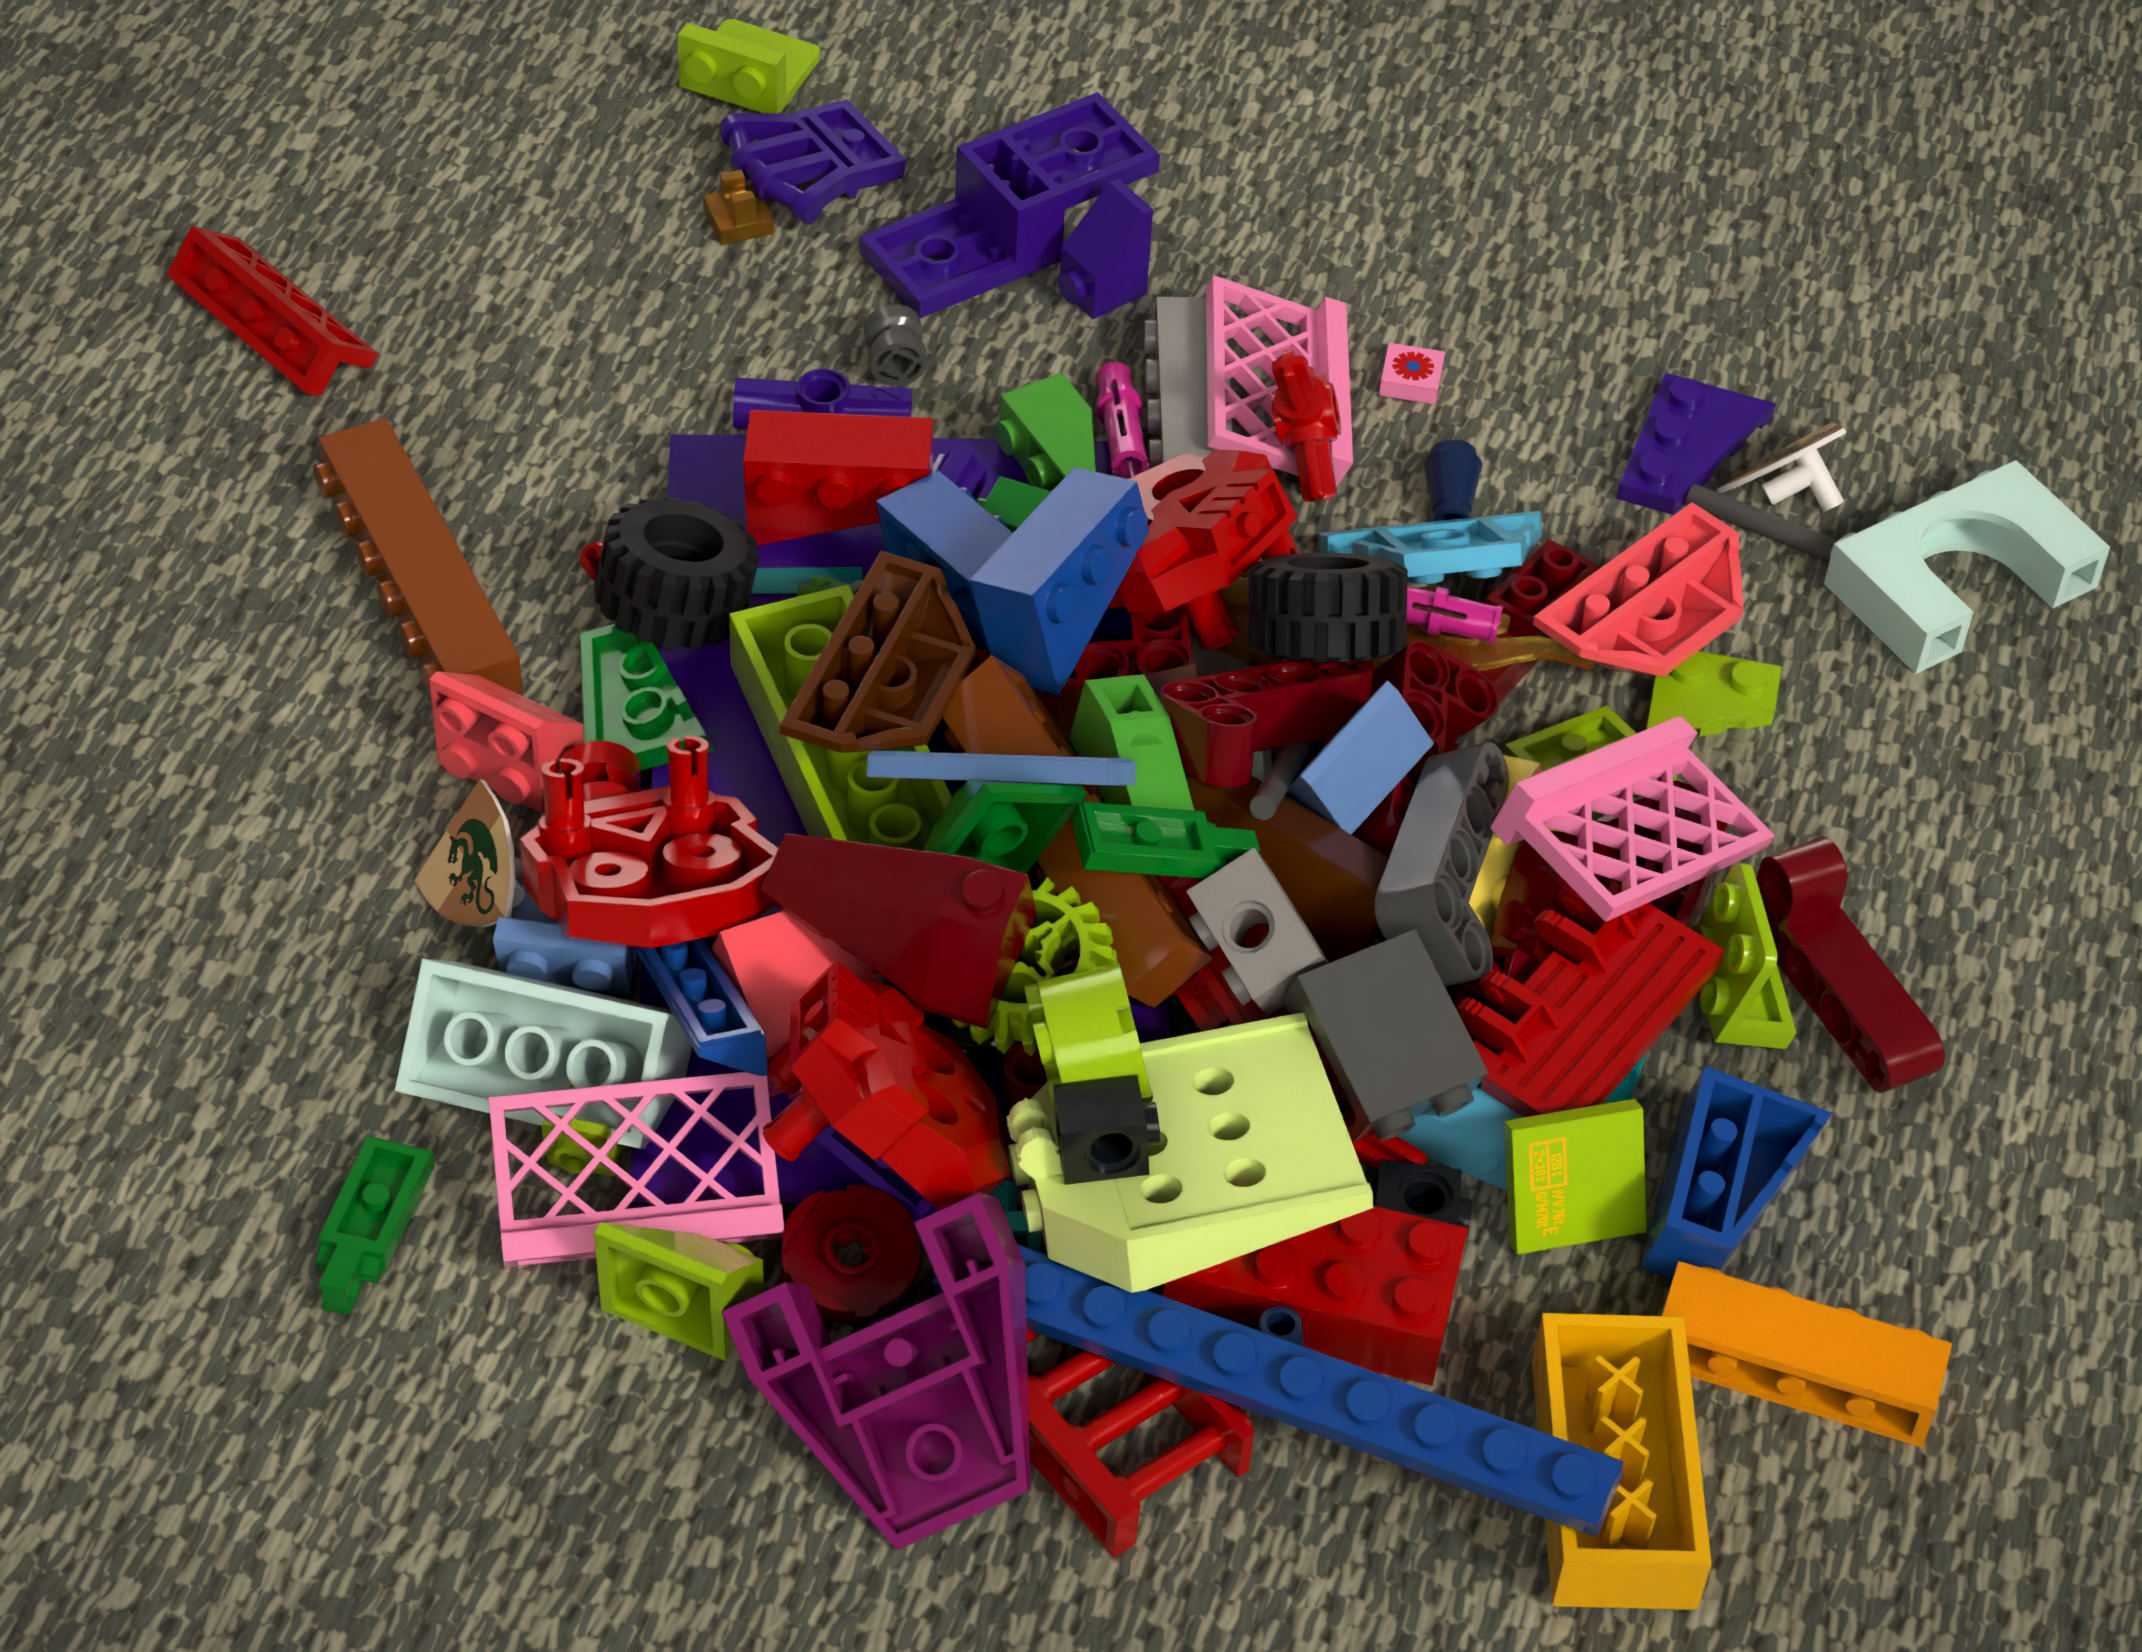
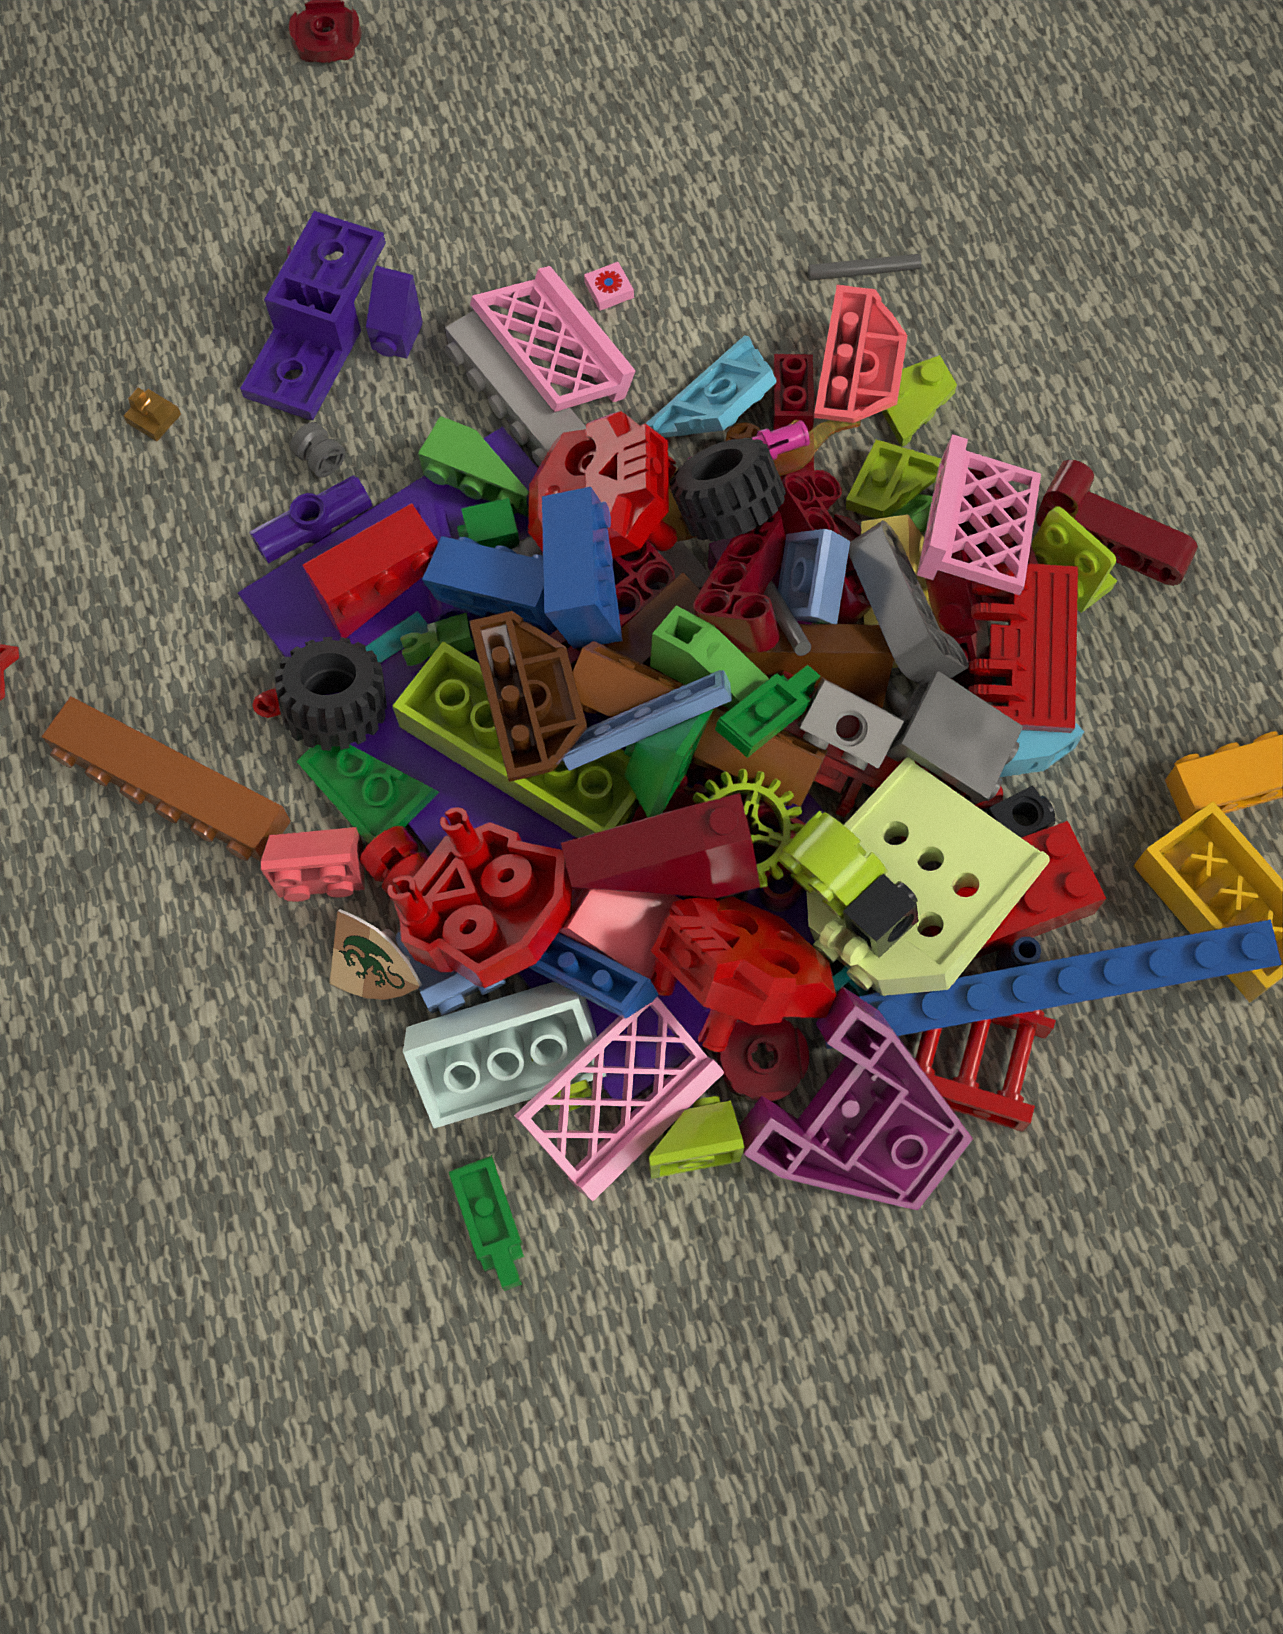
camera: 30 degrees left, 20 degrees up
(744, 64) = (75, 307): lime bracket -> none
(810, 145) = (168, 328): dark purple plate -> none
(1123, 401) = (463, 402): dark pink pin -> none
(1306, 421) = (601, 364): red bush -> none
(1452, 478) = (687, 345): dark blue cone -> none
(1575, 1176) = (1088, 748): lime tile -> none
(1686, 438) = (782, 239): dark purple wing -> none
(1725, 1168) = (1153, 696): blue wedge -> none
(1809, 472) = (853, 219): white shield -> none
(1995, 514) = (979, 188): light aqua arch -> none

